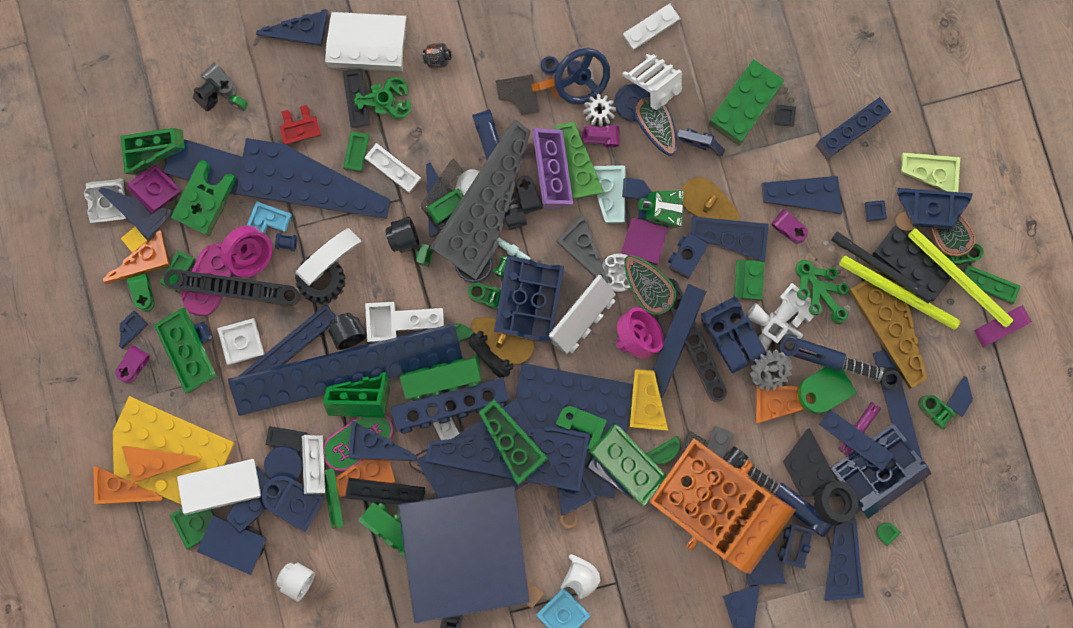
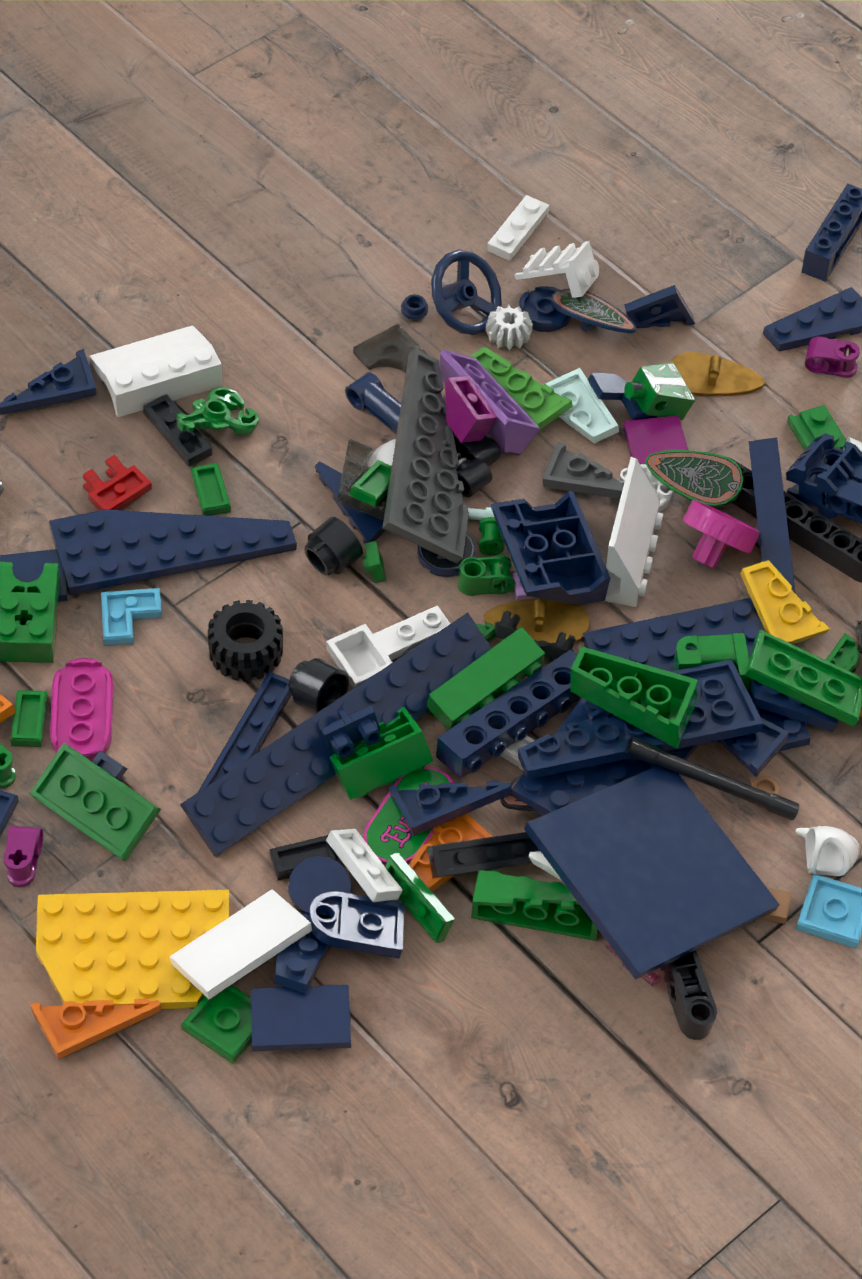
camera: 30 degrees left, 30 degrees down
(149, 463) = (118, 959): orange wing -> none
(231, 287) = (200, 682): black gear -> none
(238, 102) = (15, 491): green tile -> none
(241, 341) = (169, 766): white tile -> none
(244, 242) = (109, 644): dark pink piece -> none
(285, 242) = (170, 621): dark blue bush -> none
(295, 580) = (423, 1021): white piece -> none
(327, 256) = (239, 601): white slope -> none
(342, 377) = (351, 729): none -> dark blue hips
(393, 168) = (272, 485): white plate -> none
(437, 55) = (260, 345): black head -> none
(501, 483) = (653, 755): none -> black piece
(527, 179) = (467, 410): none -> magenta slope
(548, 83) = (427, 322): orange tile -> none
(605, 135) = (535, 348): magenta piece -> none
(695, 247) = (723, 430): dark blue brick -> none
(739, 236) = (766, 391): dark blue wing -> none
(746, 102) = (689, 251): green brick -> none
(785, 115) = (744, 251): black plate -> none

